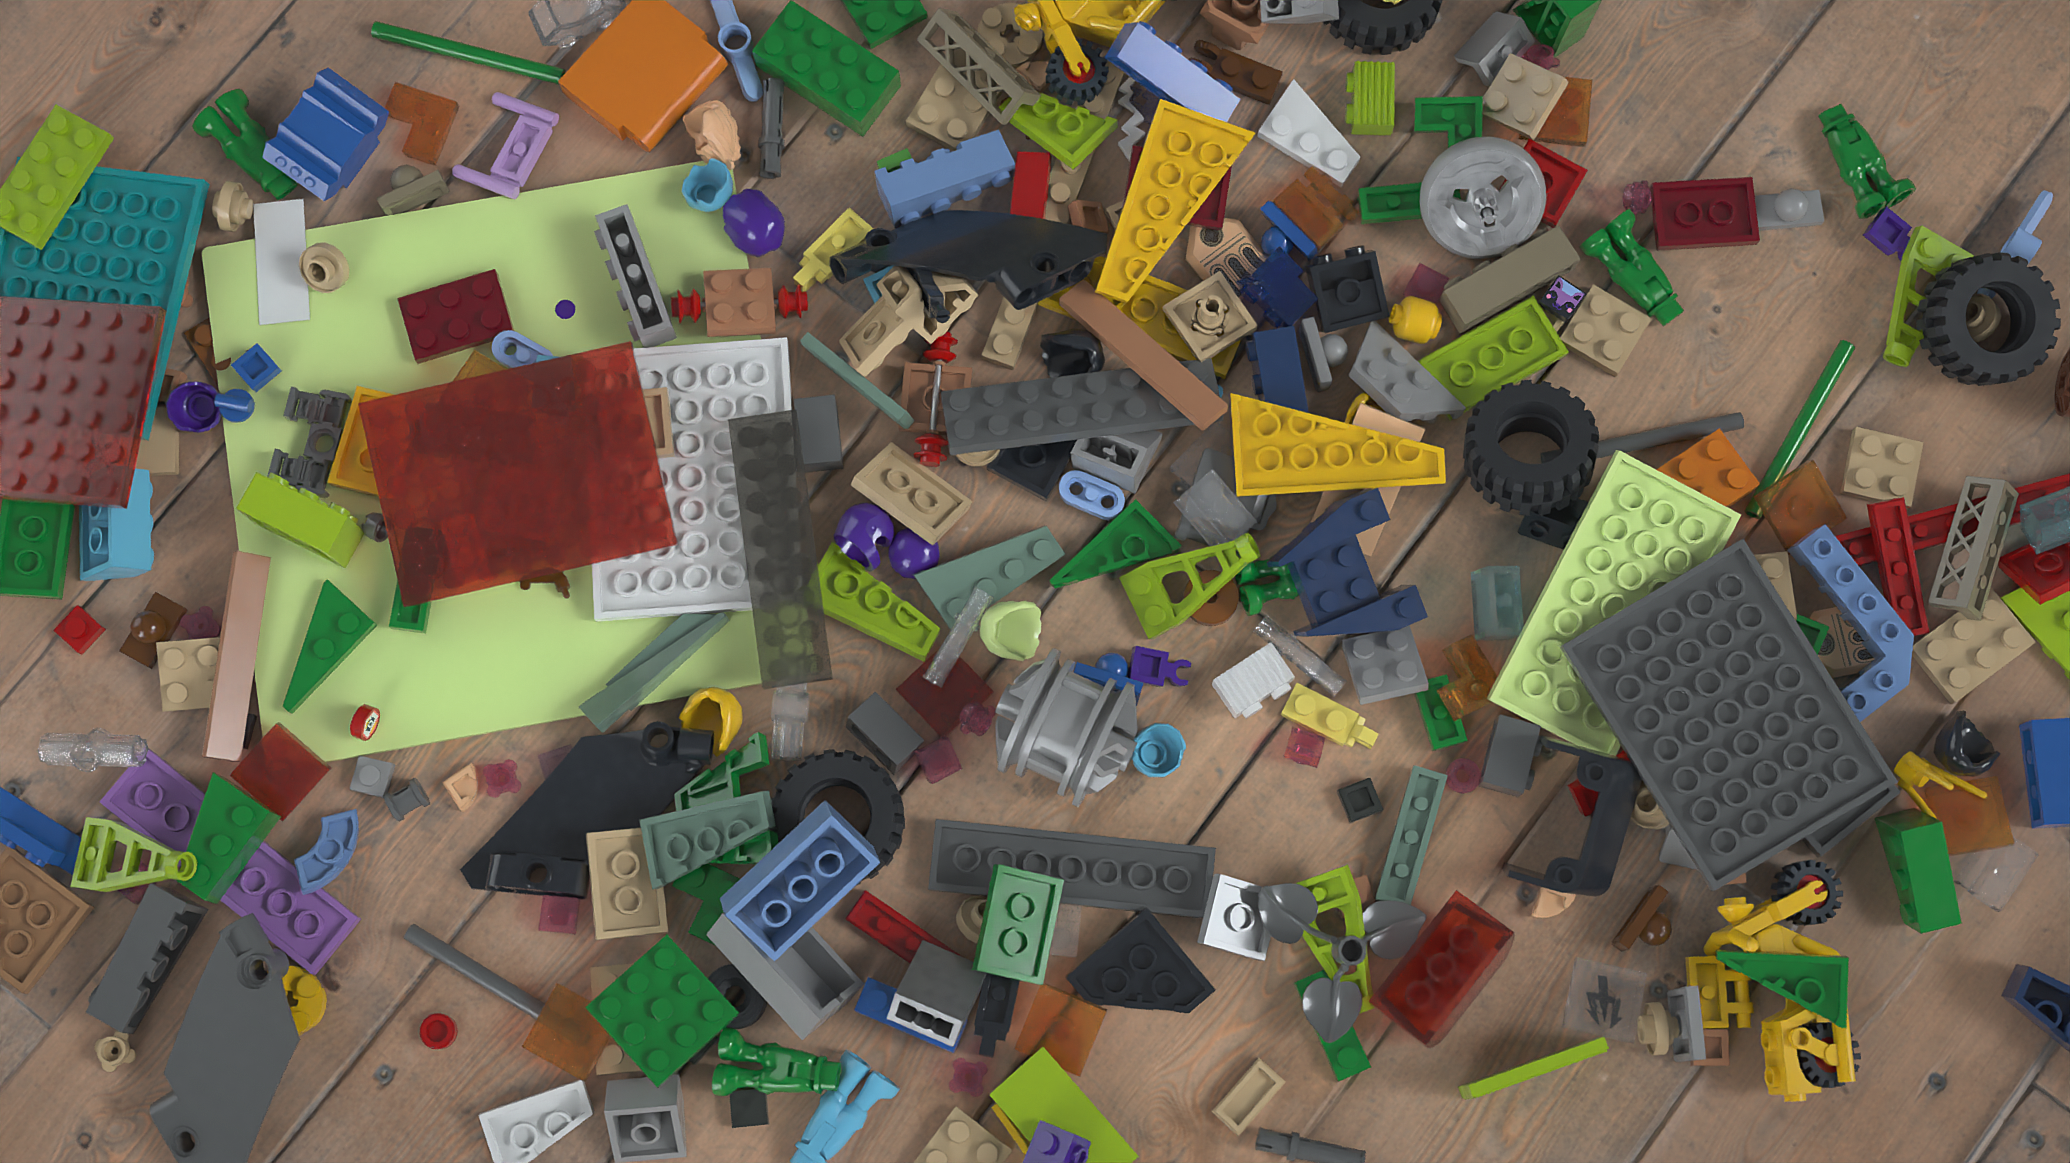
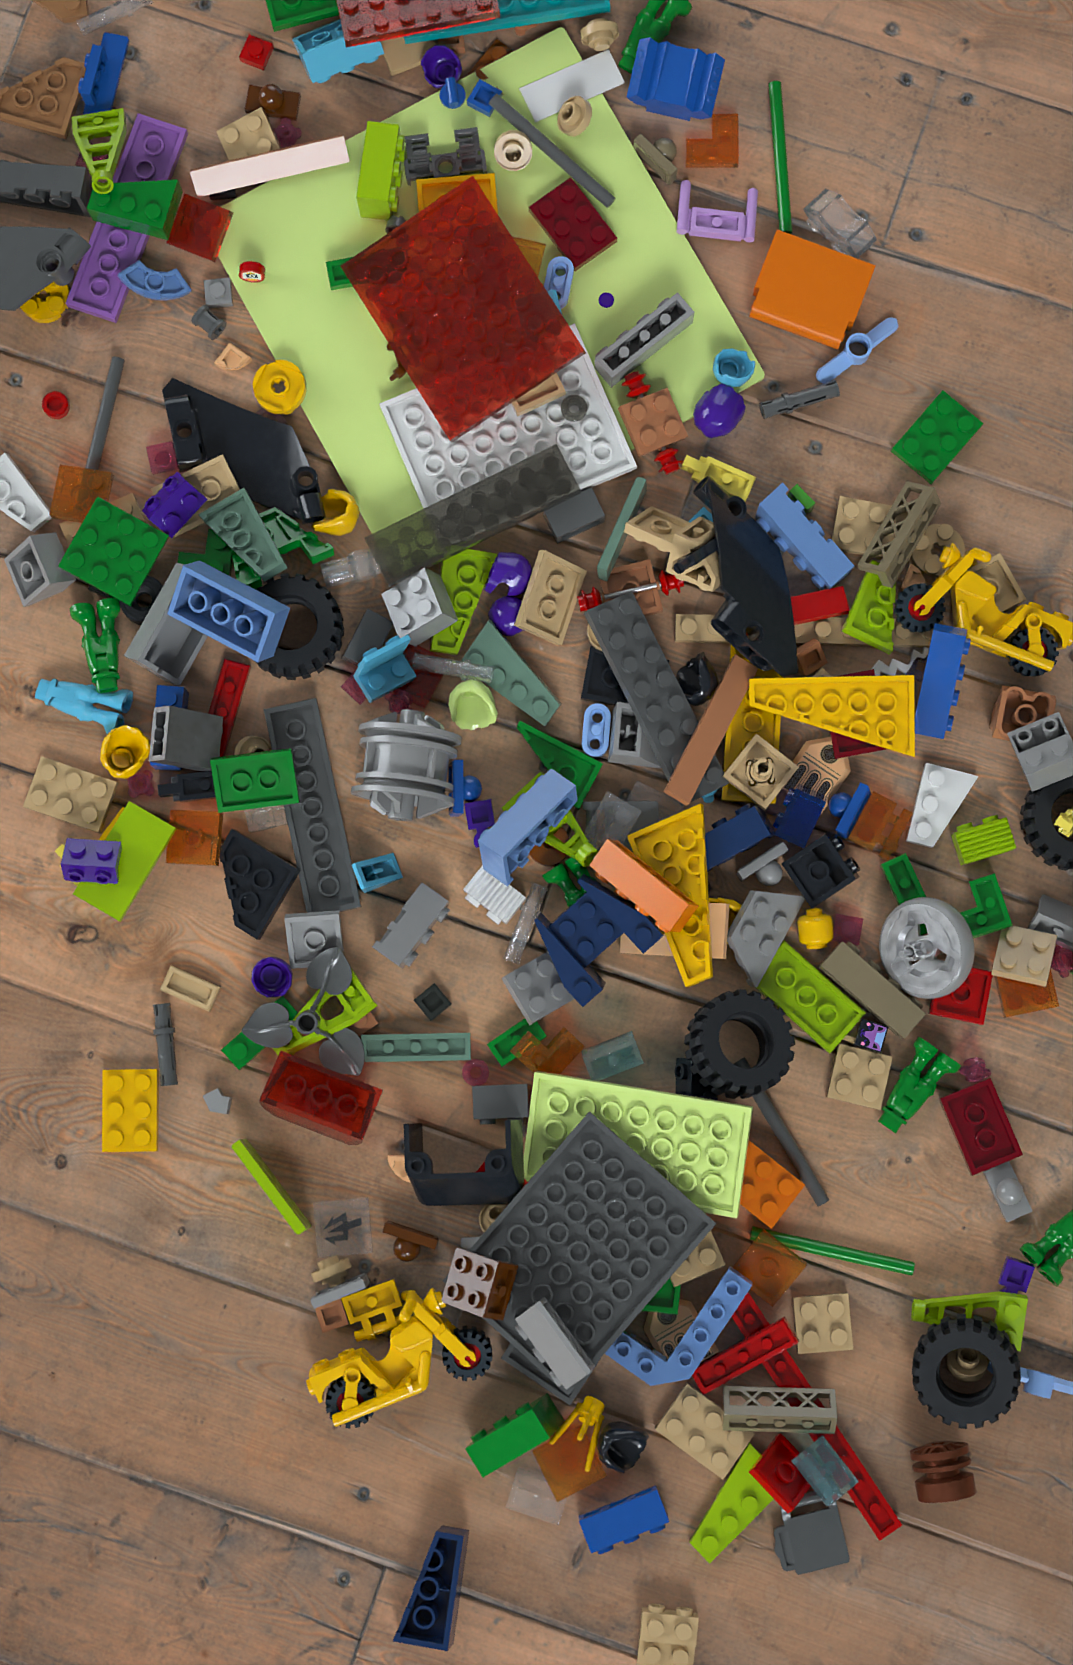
camera: 75 degrees right, 5 degrees up
(93, 750) = (171, 94): clear piece -> none
(331, 637) = (307, 226): green wing -> none
(337, 354) = (513, 150): none -> tan plate
(356, 308) = (552, 151): none -> dark grey piece
(492, 775) = (239, 379): clear pink plate -> none
(527, 756) = (286, 400): none -> yellow plate
(628, 915) = (173, 504): none -> dark purple bracket
(651, 667) = (357, 456): sand green wedge -> none
(685, 377) = (570, 401): none -> clear smoke plate
(714, 132) = (778, 359): light nougat hair -> none
(748, 1108) = (69, 638): pearl dark grey tile -> none
(827, 68) = (860, 422): green brick -> none
(869, 651) = (419, 606): none -> light grey brick
(924, 1079) = (124, 751): none -> yellow hair
(934, 720) = (384, 669): none -> medium azure bracket
(1158, 750) = (418, 840): medium azure hair -> none
(1179, 815) = (377, 872): none -> medium azure slope
(1187, 608) = (525, 825): none -> medium blue wedge
(1240, 72) = (969, 732): reddish brown hinge -> none
(1261, 792) = (413, 926): none -> light grey wedge
(1269, 985) = (272, 977): none -> dark purple hair
(1304, 747) = (457, 948): clear pink plate -> none
(1310, 491) = (643, 886): none -> orange brick
(1327, 718) = (486, 958): light yellow hinge -> none
(1403, 1106) = (217, 1101): none -> light grey piece
(1734, 845) = (479, 1284): none -> reddish brown bracket
(1807, 979) = (395, 1368): green wing -> none
(1836, 774) = (554, 1344): none -> light grey slope

